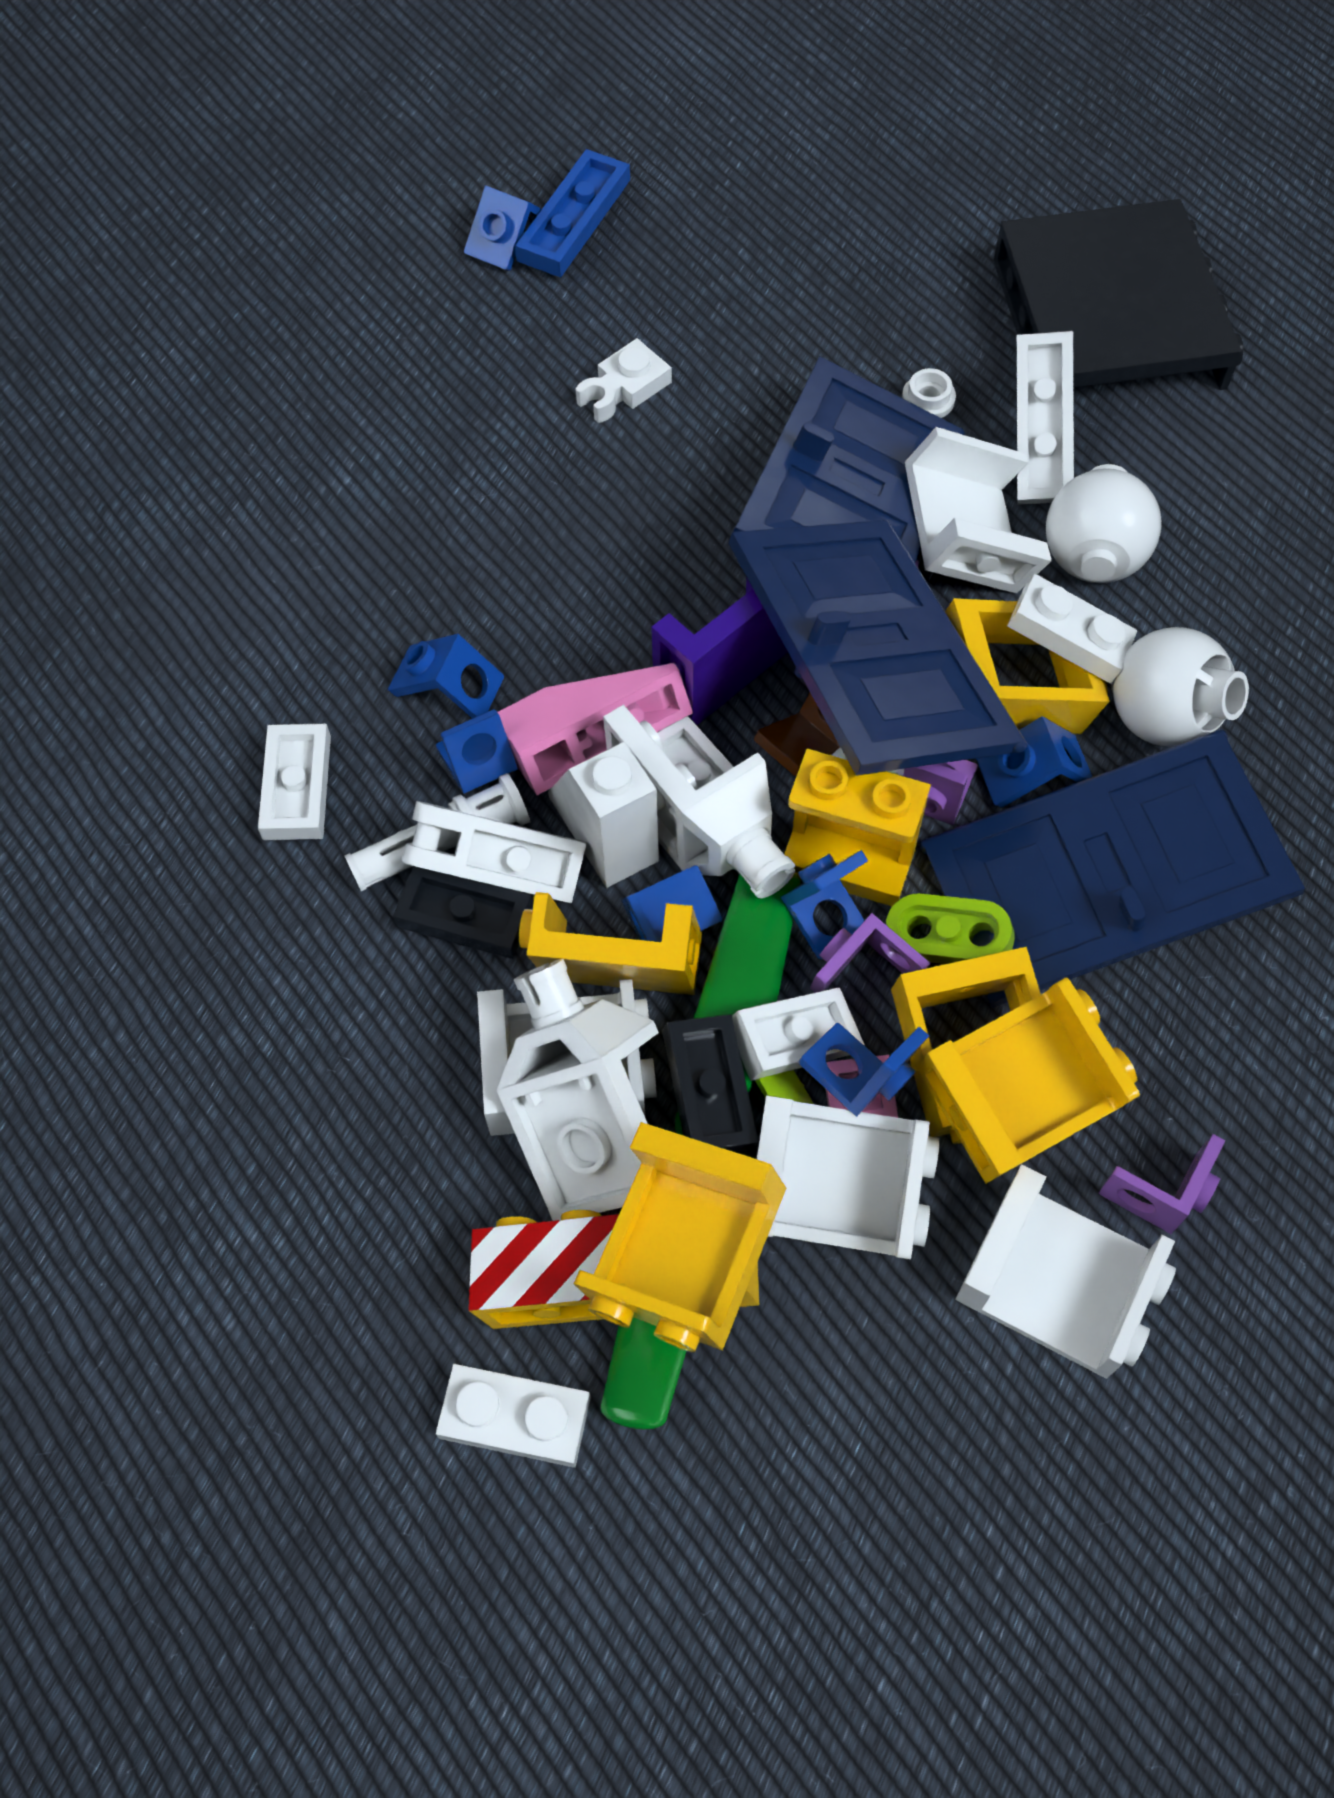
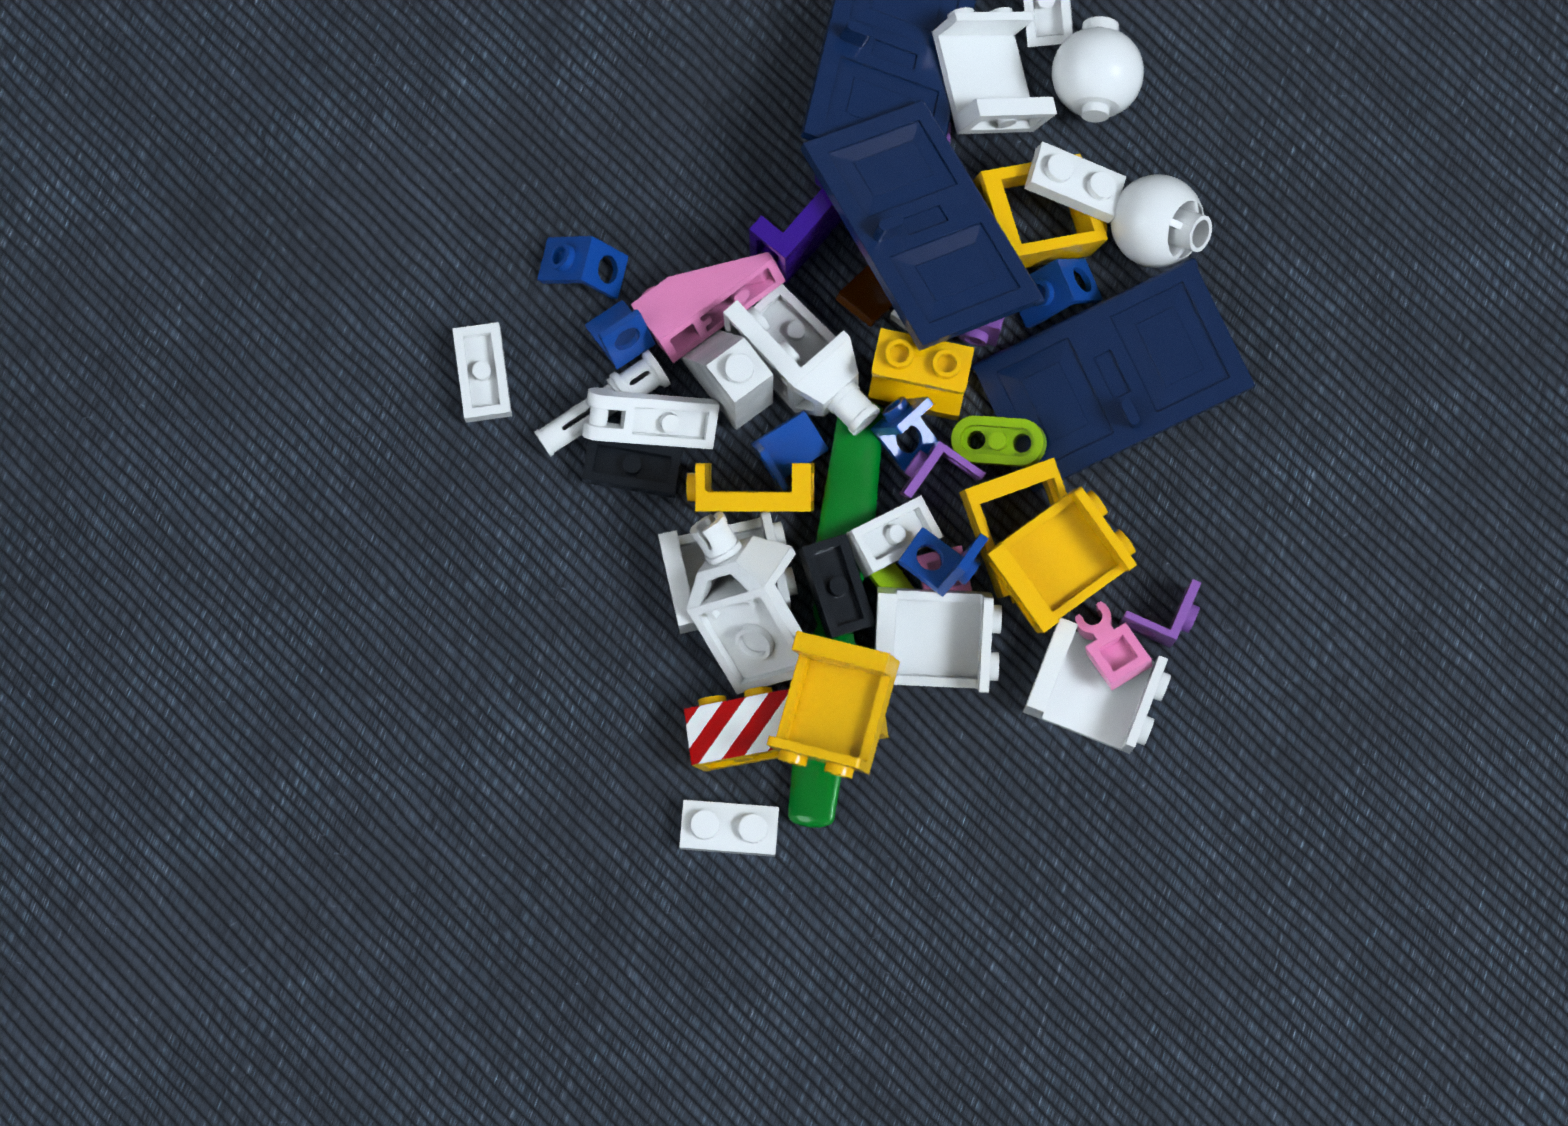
camera: 10 degrees left, 15 degrees up
(1093, 1224) = (1114, 651): none -> bright pink plate

